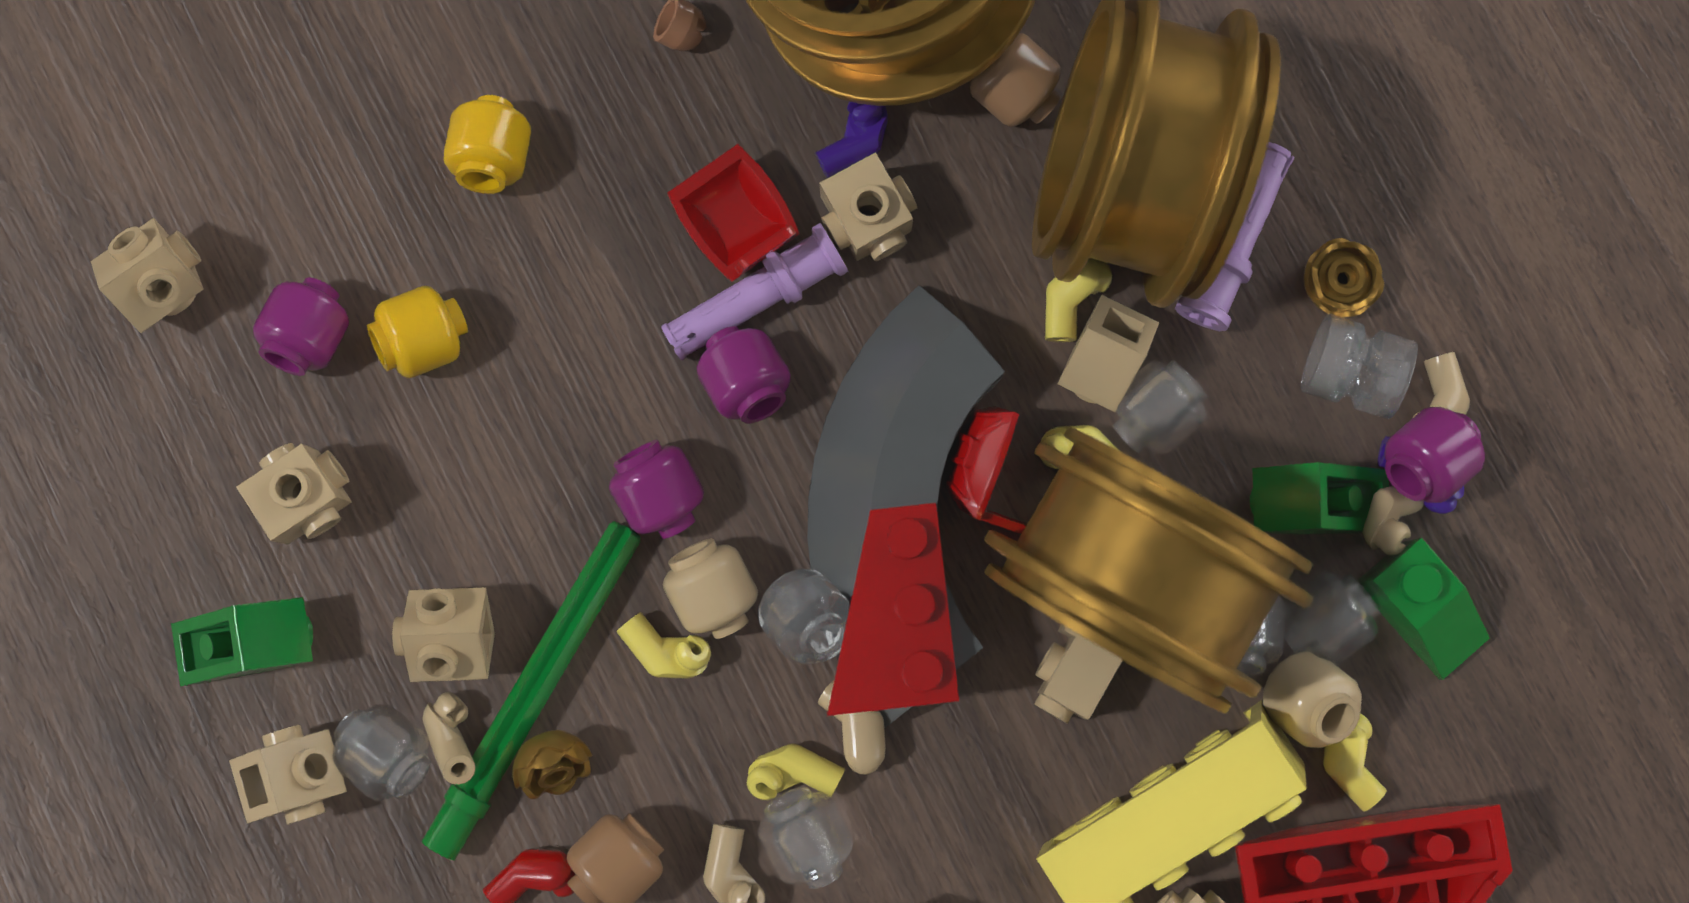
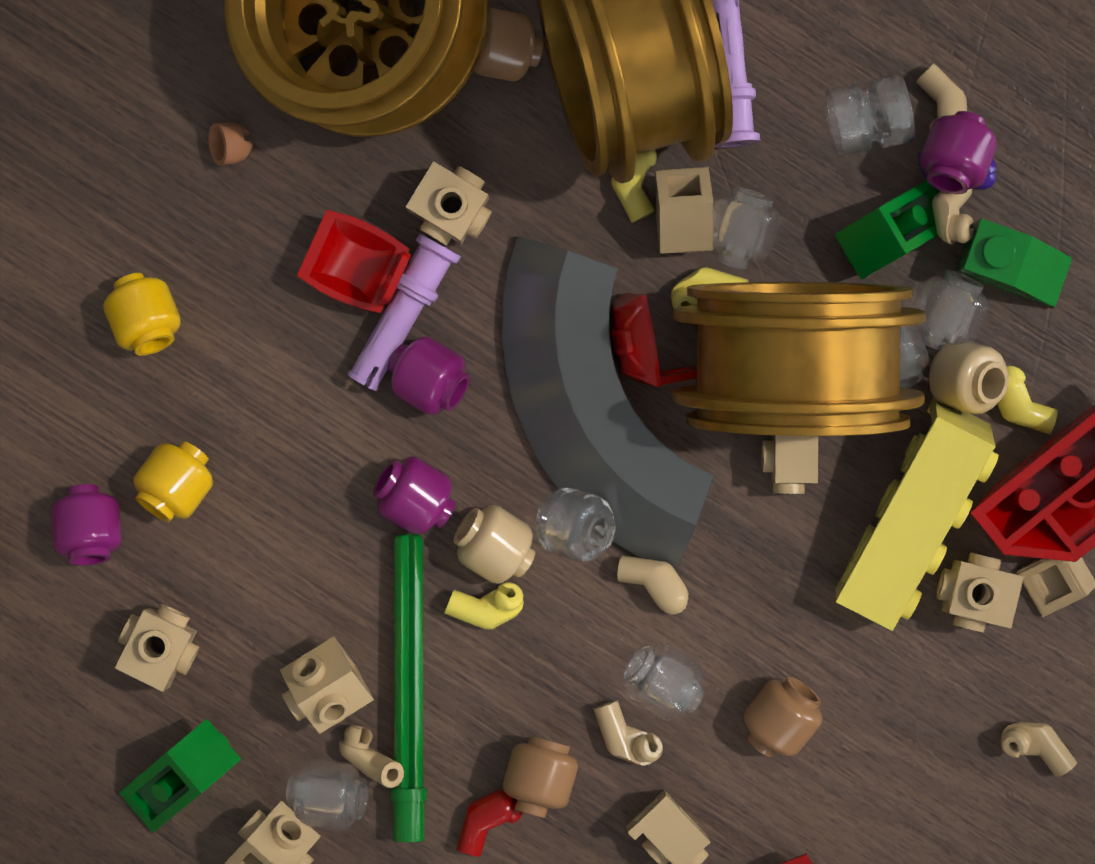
camera: 35 degrees left, 5 degrees up
(550, 763) = (453, 733): pearl gold plate -> none
(789, 767) = (624, 637): light yellow arm -> none
(861, 139) = (413, 154): dark purple arm -> none
(898, 618) = (643, 490): red wing -> none
(1361, 269) = (823, 37): pearl gold plate -> none

